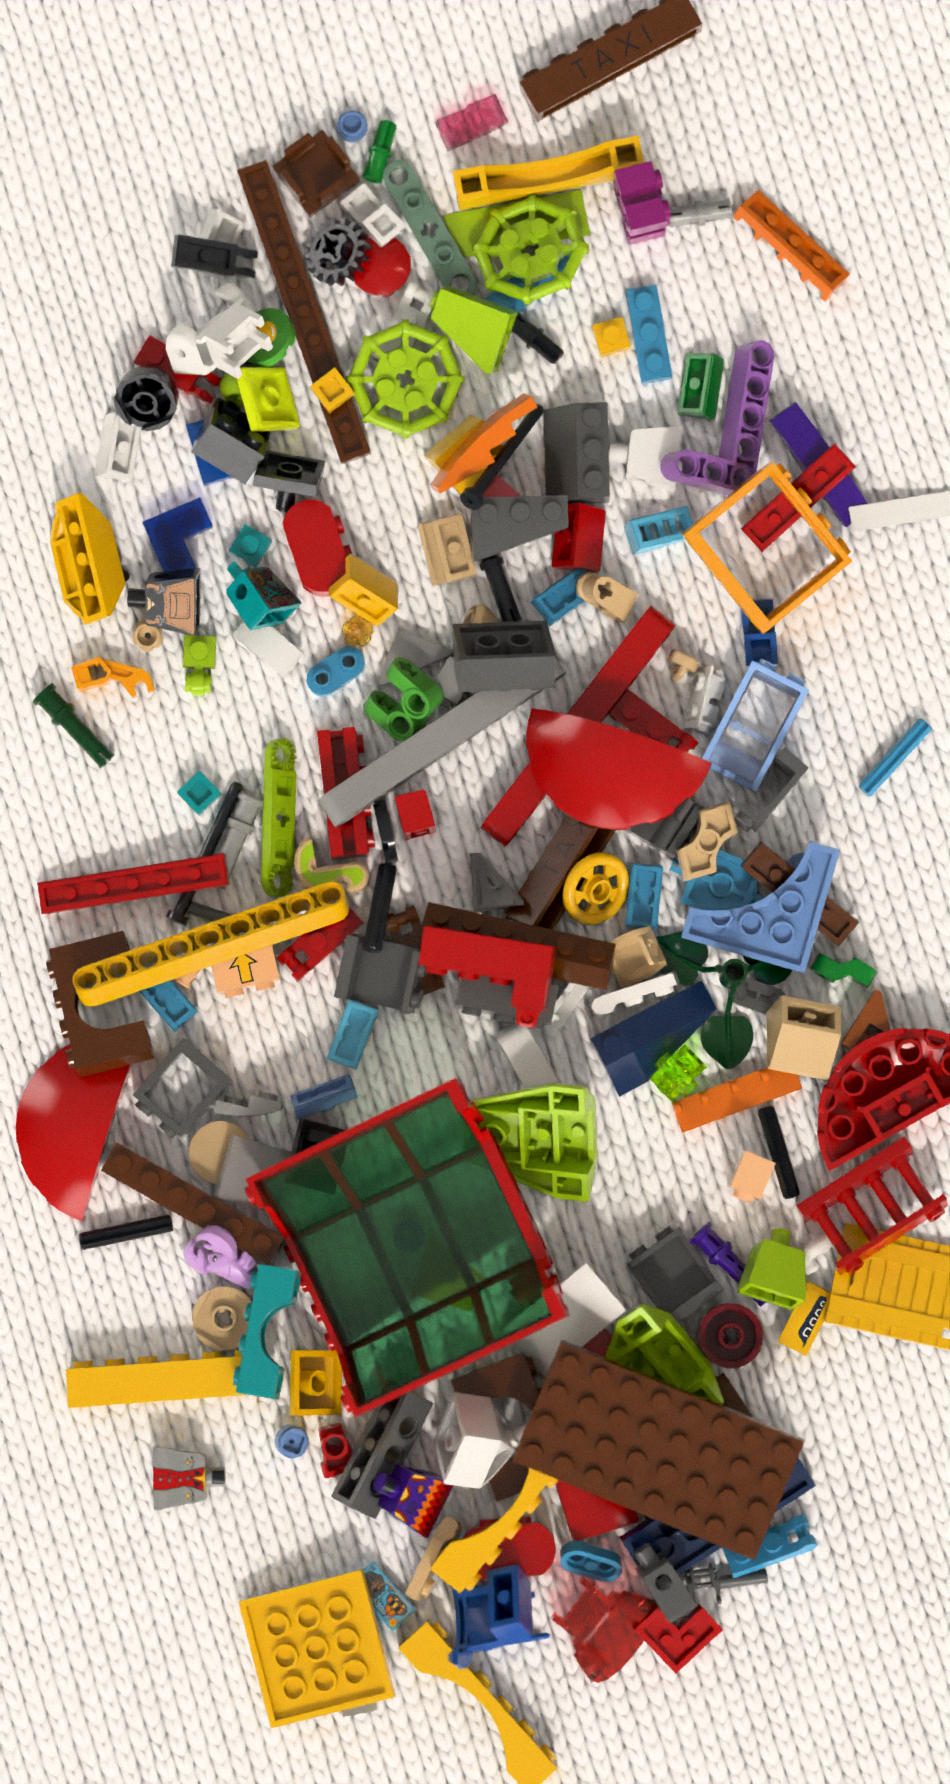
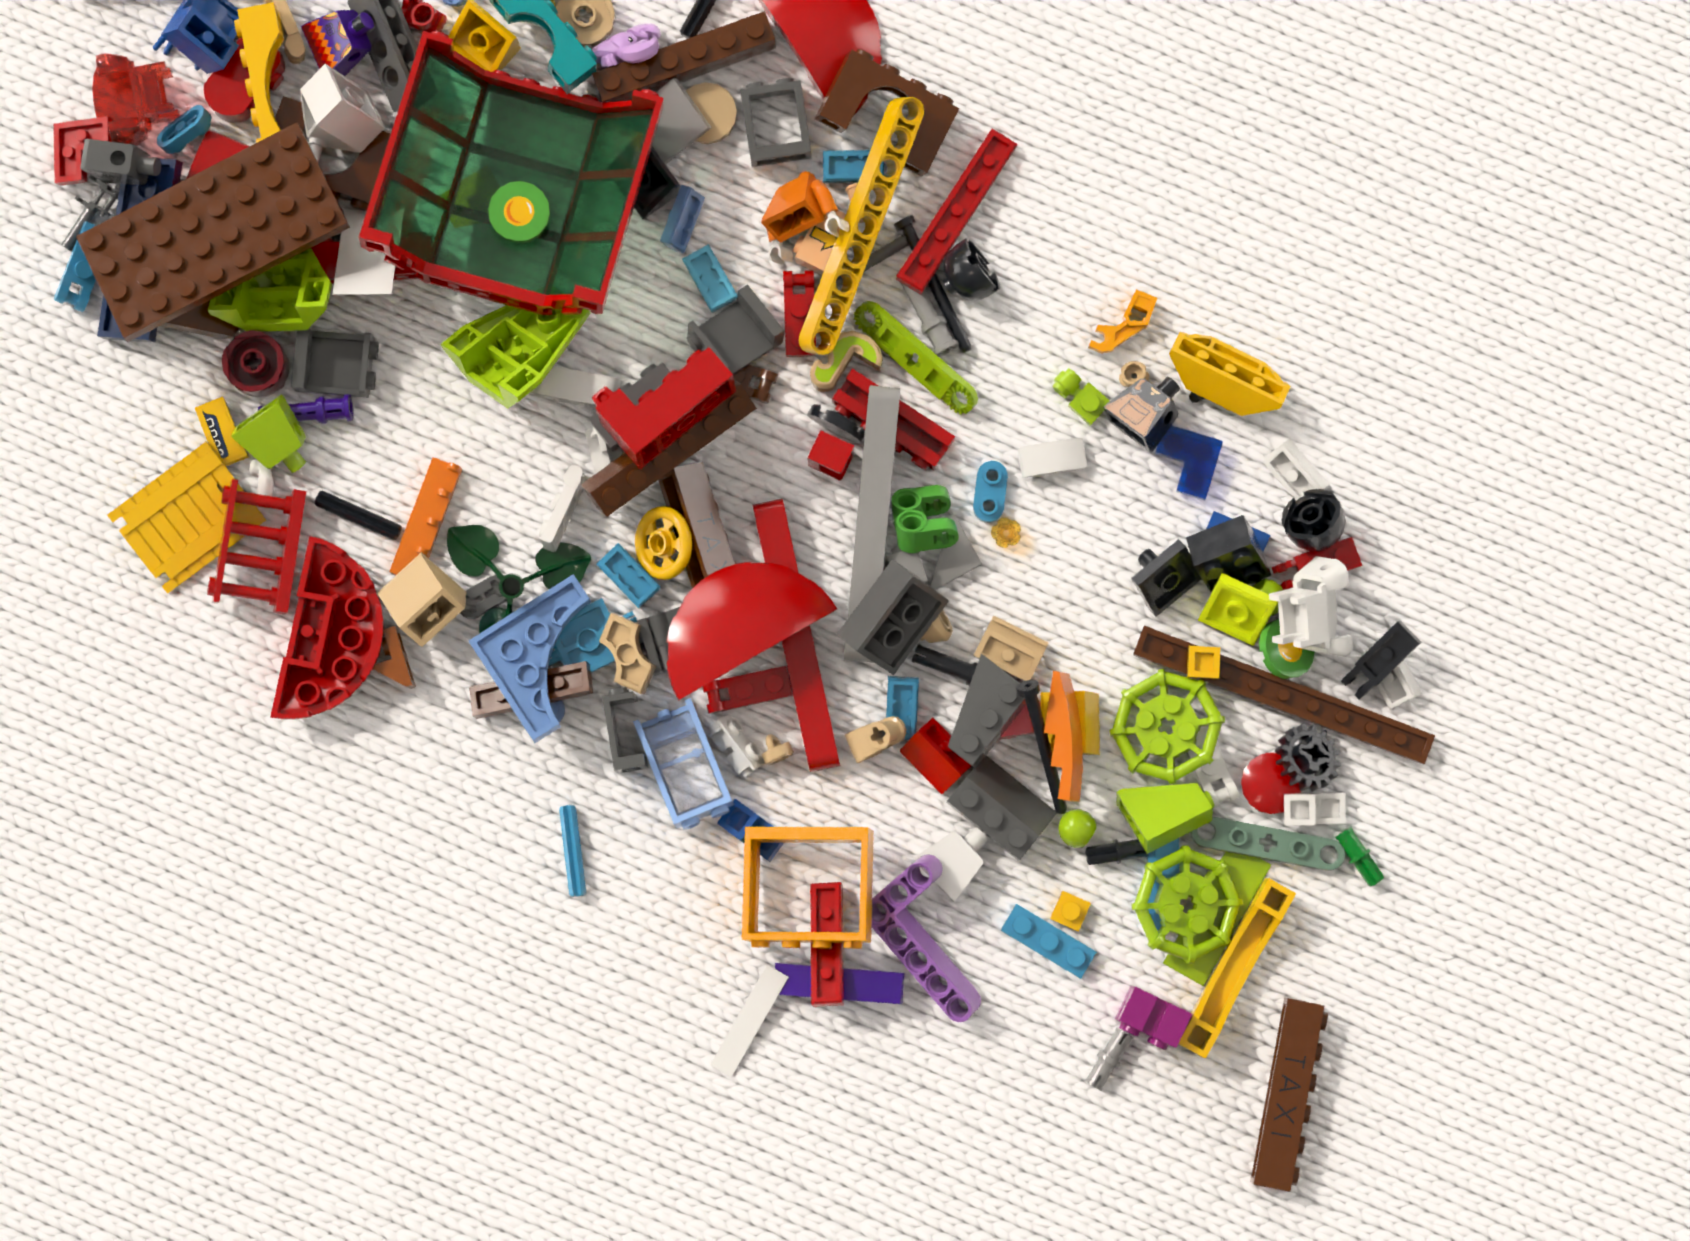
camera: 130 degrees right, 0 degrees up
(63, 714) = (1127, 264): dark green pin -> none
(176, 830) = (968, 272): none -> black cylinder
(199, 793) = (983, 315): teal plate -> none
(238, 1007) = (797, 208): none -> orange torso
(250, 546) = (1138, 507): teal plate -> none
(258, 1106) = (715, 167): light grey slope -> none
(260, 596) = (1092, 479): teal torso -> none
(315, 171) = (1384, 794): reddish brown panel -> none
(316, 545) = (1093, 554): red brick -> none
(352, 126) = (1397, 852): medium blue plate -> none
(366, 591) = (1030, 561): yellow panel -> none
(379, 908) = (784, 373): black axle -> none
(431, 1225) = (519, 212): none -> bright green tile
(471, 123) = (1324, 945): clear pink slope -> none
(489, 887) = (731, 467): light grey tile -> none
(543, 382) = (1077, 828): none -> lime piece
(634, 536) = (904, 798): medium azure slope -> none
(637, 956) = (589, 530): tan piece -> none
(637, 1043) = (522, 486): dark blue wedge -> none
(677, 1073) = (477, 488): clear neon green brick -> none
(700, 385) = (975, 946): green slope -> none
(750, 1177) = (355, 475): light nougat brick -> none
(792, 244) = (1025, 1109): orange hinge -> none
(854, 970) = (452, 668): green piece -> none

